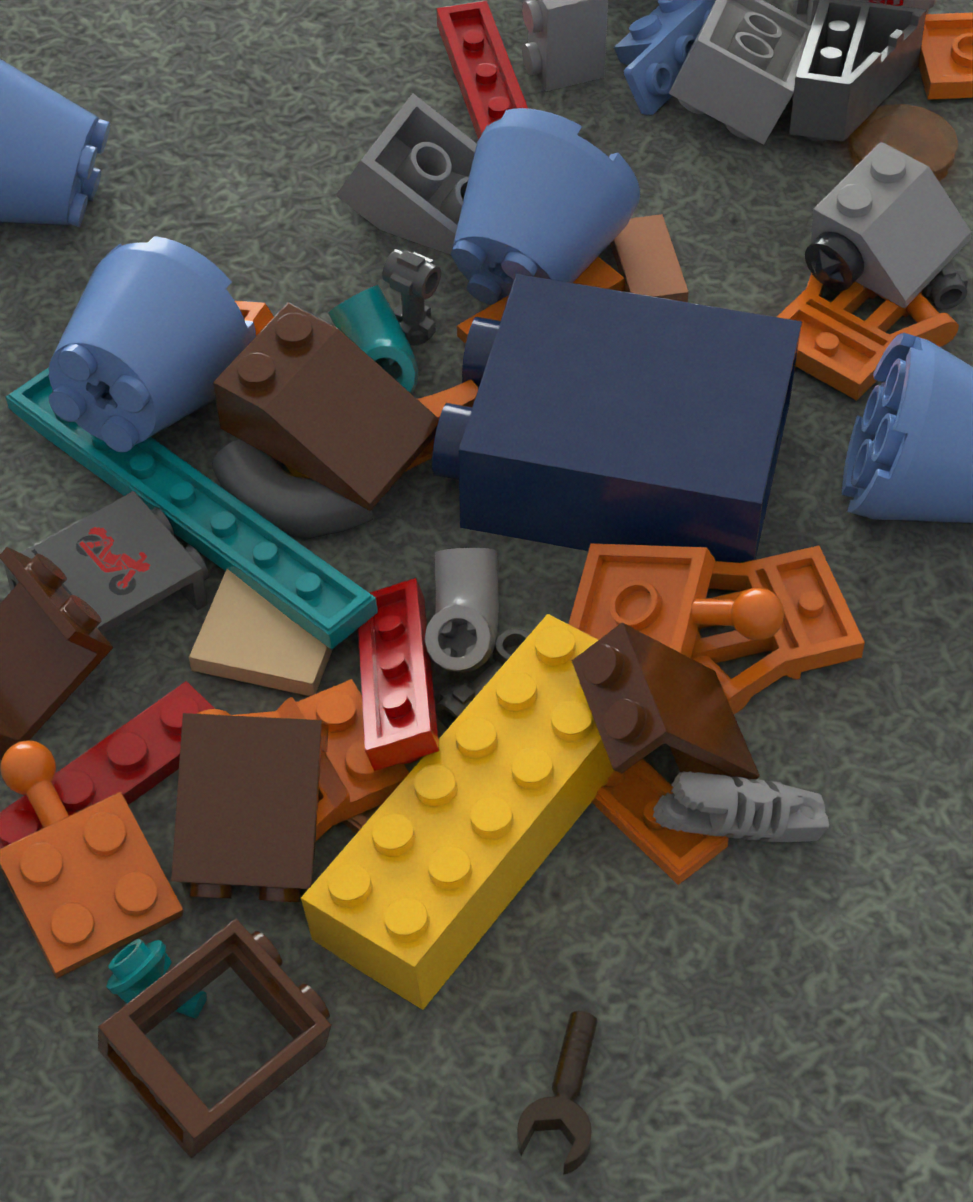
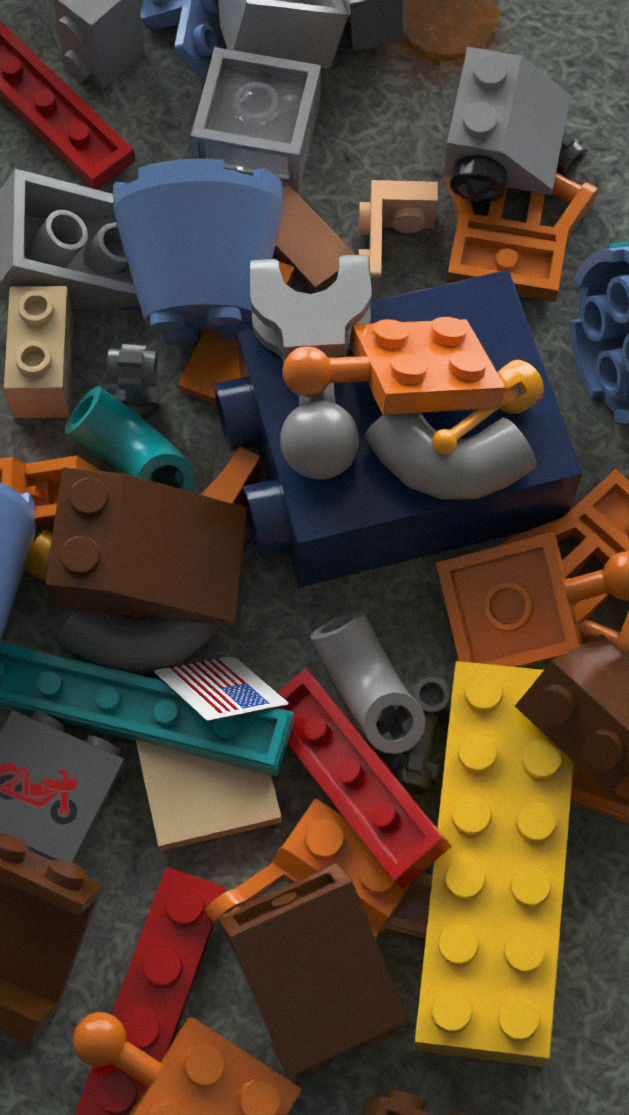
camera: 30 degrees left, 15 degrees up
(326, 556) = (220, 688): none -> sticker
(348, 247) = (39, 352): none -> tan brick
(573, 294) = (318, 435): none -> light grey piece
(630, 435) = (470, 472): none -> light grey cylinder
(633, 333) = (406, 366): none -> orange plate
(672, 144) = (258, 114): none -> piece
(732, 401) = (513, 373): none -> light orange hinge
(745, 262) = (396, 205): none -> light nougat bracket

